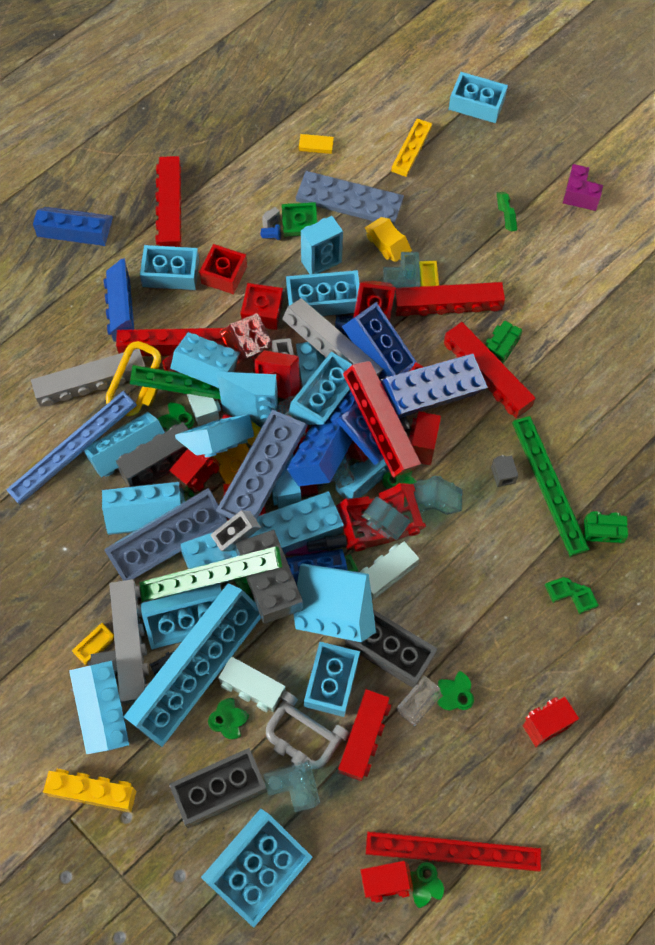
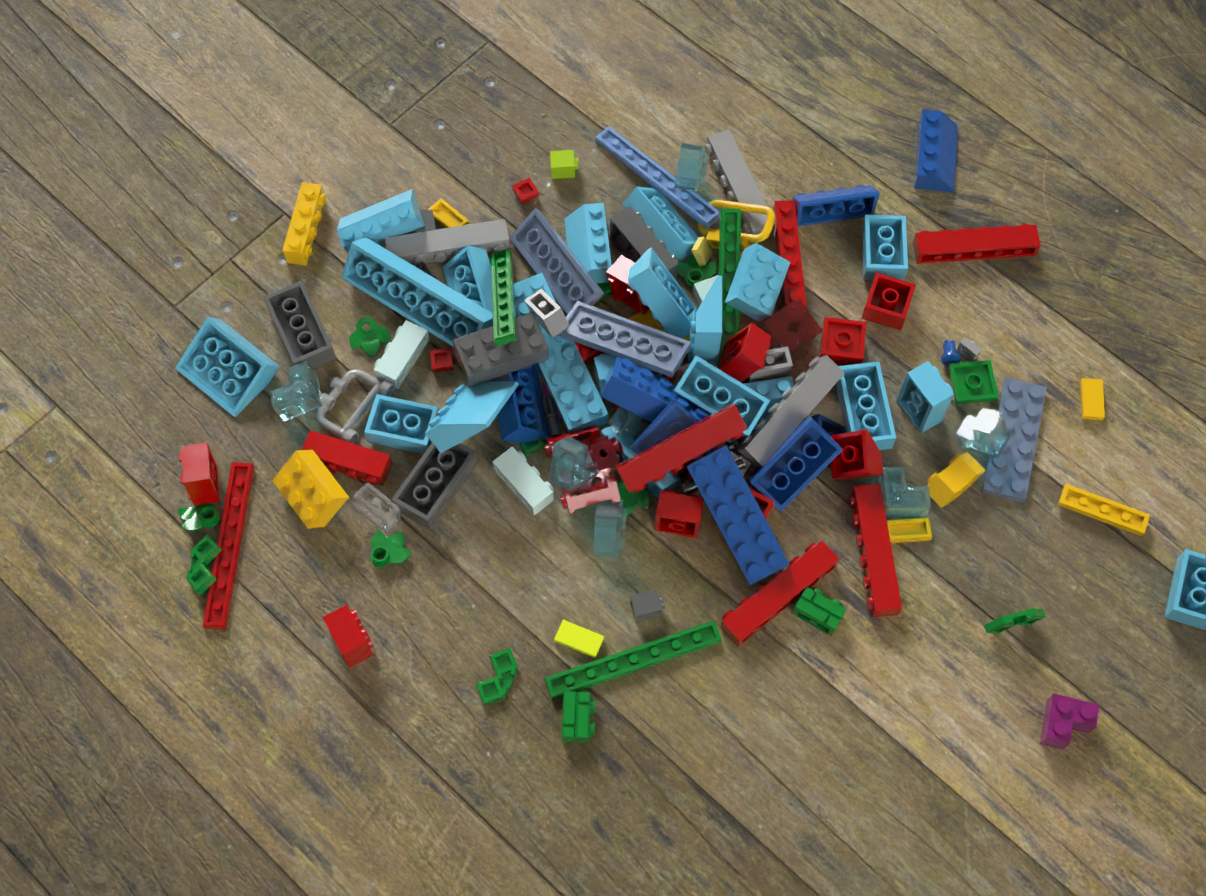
camera: 90 degrees right, 0 degrees up
(46, 531) = (563, 164): none -> lime brick
(72, 412) = (691, 167): none -> clear light blue brick
(73, 567) = (525, 190): none -> red plate
(159, 411) = (701, 251): none -> light yellow tile
(259, 646) = (441, 360): none -> red plate
(353, 211) = (984, 433): none -> clear light blue brick
(377, 485) = (611, 457): none -> dark red brick
(402, 765) = (310, 488): none -> yellow brick
(486, 880) = (202, 554): none -> green tile
(533, 527) = (579, 638): none -> neon yellow tile

